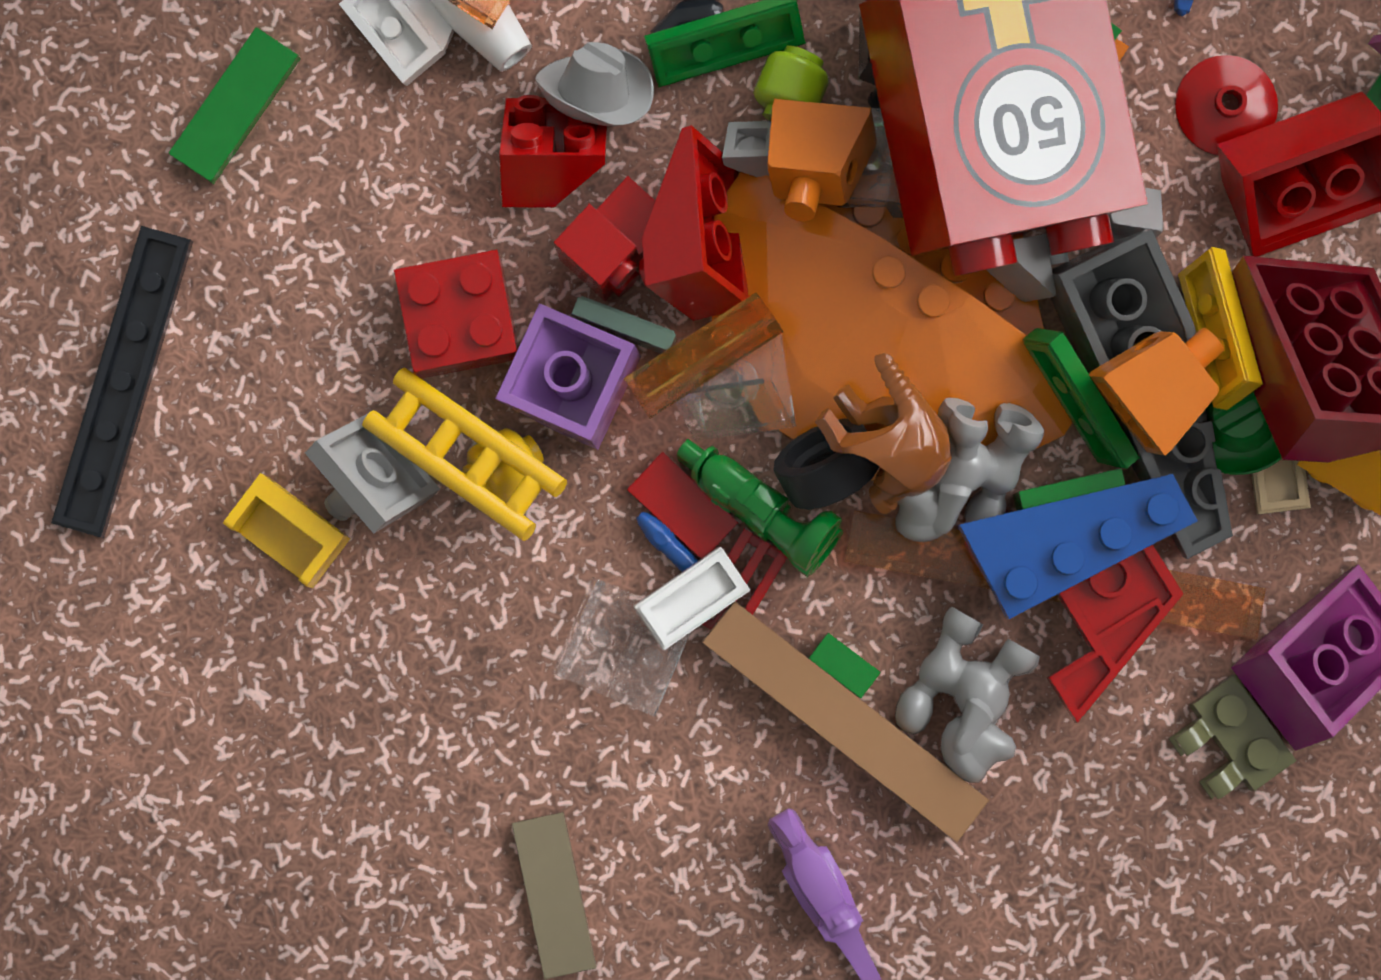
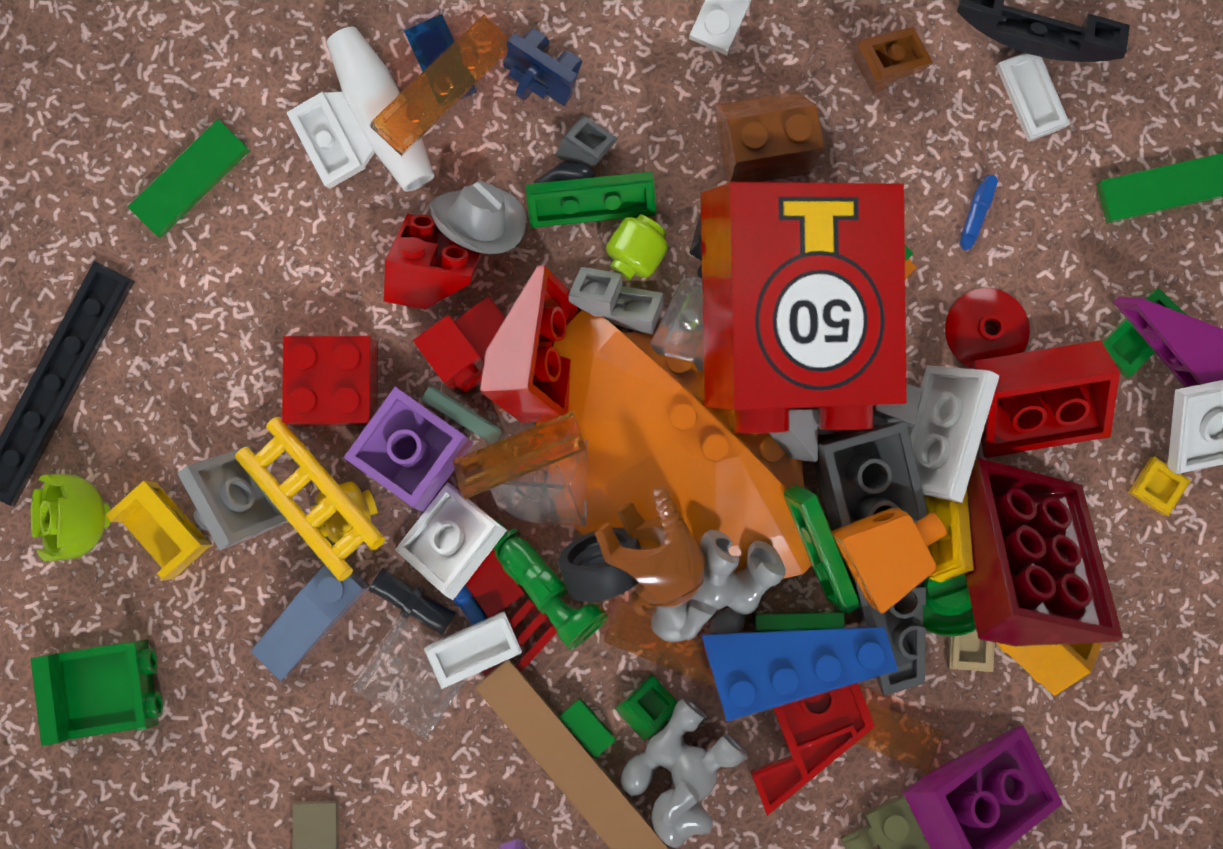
camera: 15 degrees right, 0 degrees up
(175, 534) = (67, 516): none -> lime cylinder
(252, 735) = (96, 691): none -> green panel
(486, 603) = (307, 620): none -> sand blue slope
(606, 557) = (412, 601): none -> black pin
(638, 474) = (450, 540): none -> white tile
(817, 153) = (644, 308): orange torso -> none
(909, 630) = (647, 707): none -> green slope
(1204, 226) = (950, 427): none -> white tile

